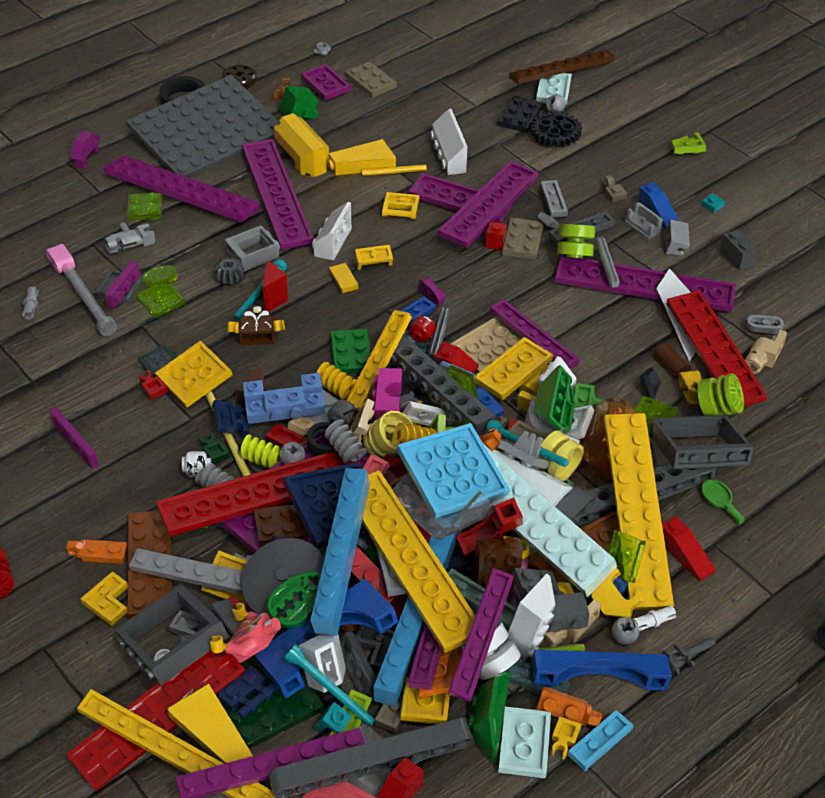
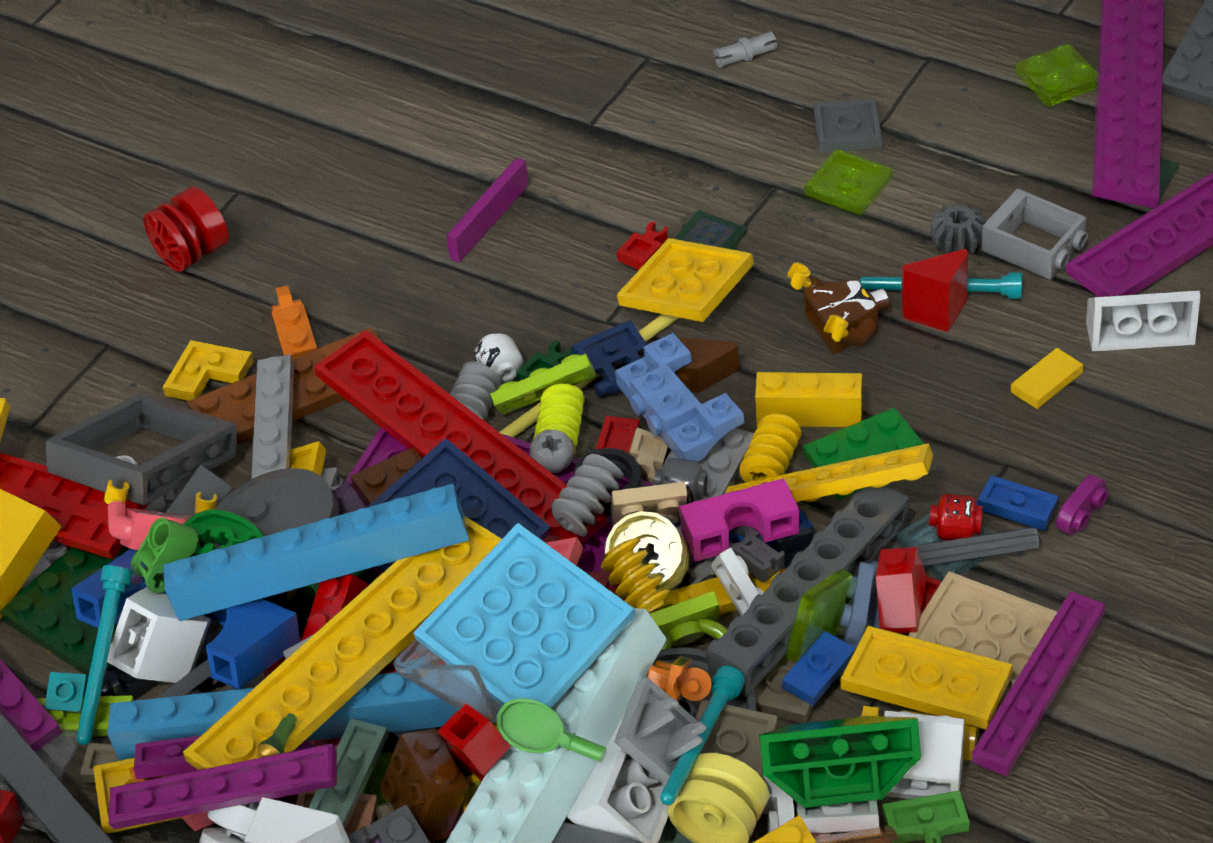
camera: 75 degrees right, 0 degrees up
(64, 263) = (852, 40): flat silver piece -> none
(122, 284) = (833, 120): magenta plate -> none
(129, 238) = (959, 88): light grey piece -> none
(159, 275) = (891, 156): clear neon green tile -> none
(235, 446) = (519, 394): none -> lime plate
(242, 688) = (70, 565): dark blue plate -> none
(292, 627) = (164, 544): none -> bright green piece
(308, 355) = (810, 397): none -> yellow brick
(373, 255) = (1117, 392): yellow hinge -> none
(470, 603) = (276, 743): none -> clear green piece
(520, 485) = (540, 729): none -> bright green piece

